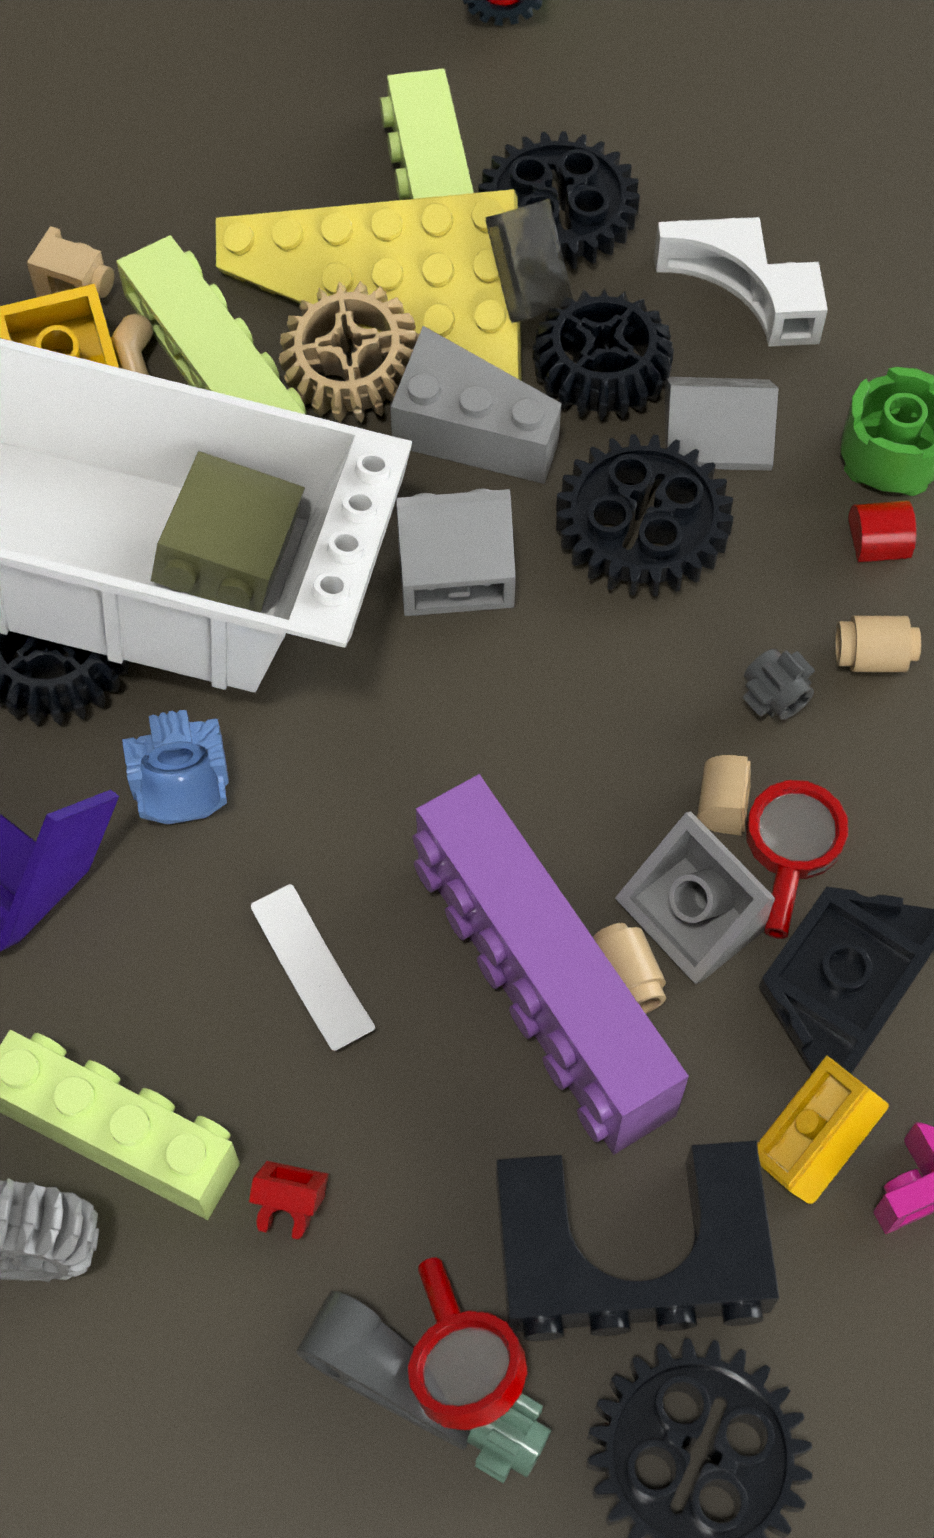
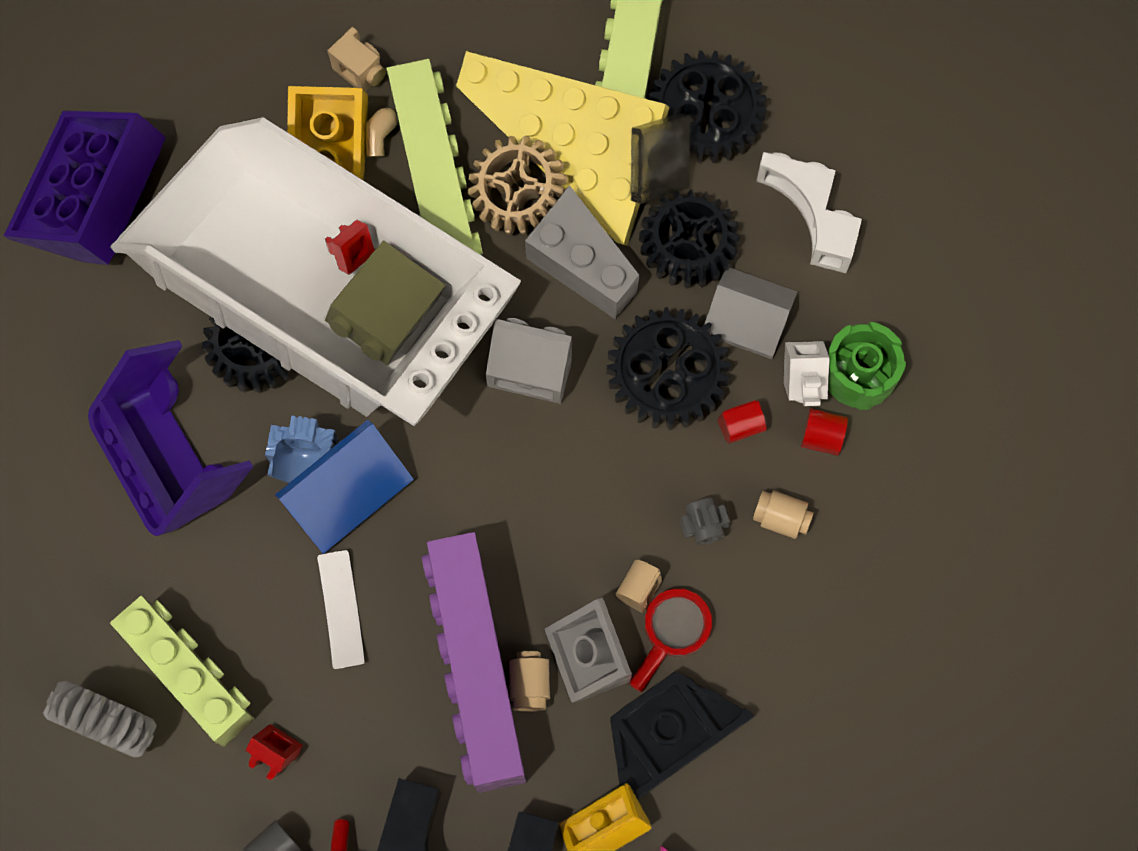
camera: 20 degrees right, 10 degrees up
(153, 476) = (351, 246): none -> red tile
(258, 793) = (344, 486): none -> blue tile
(770, 548) = (742, 421): none -> red brick
(829, 460) = (806, 372): none -> white brick

